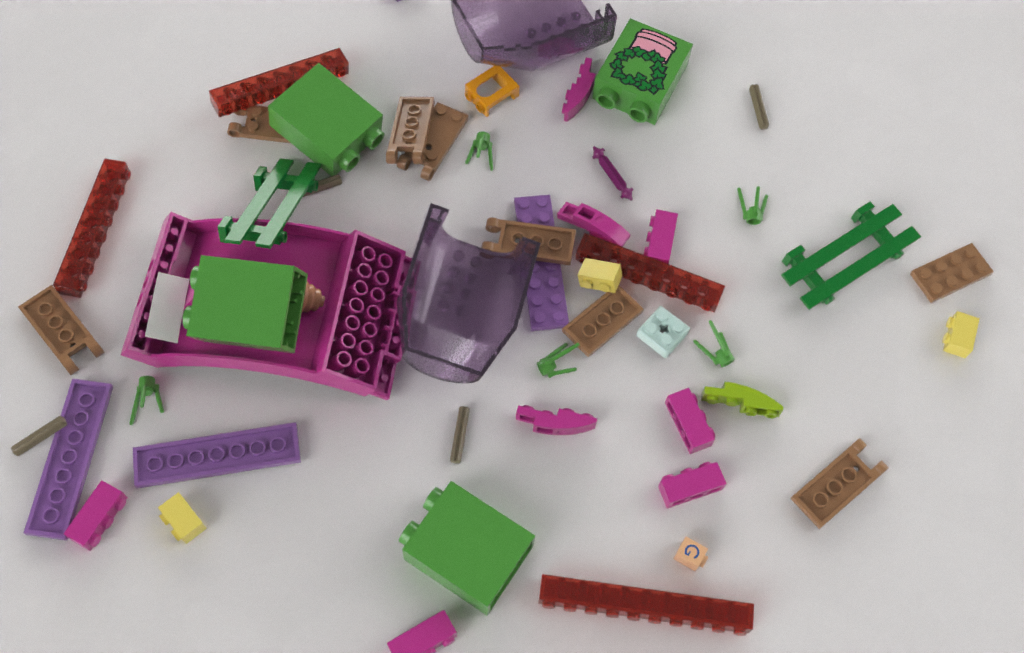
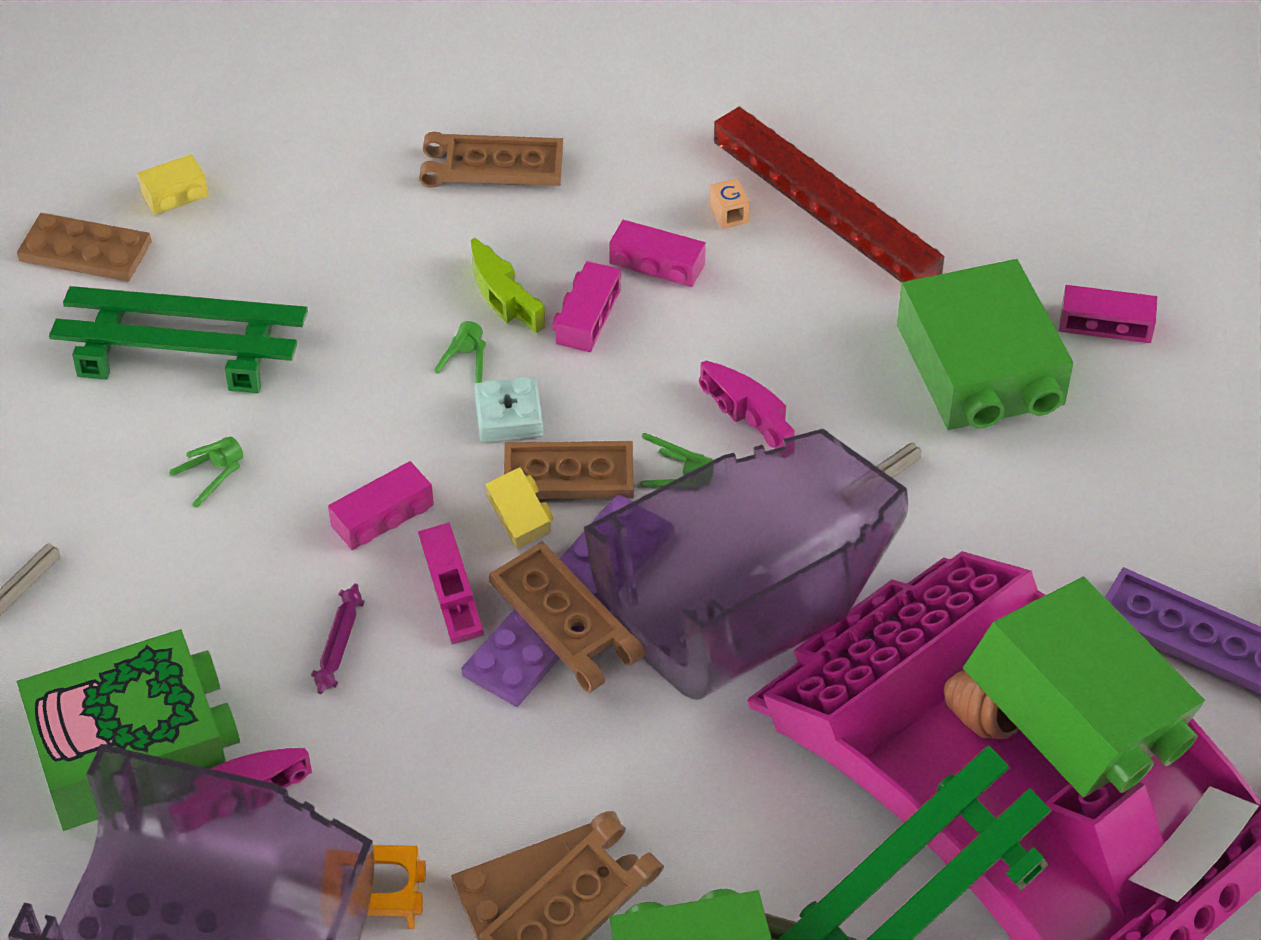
camera: 135 degrees left, 15 degrees down
(481, 143) = (476, 813): bright green plant -> none
(659, 271) = (454, 490): clear red brick -> none

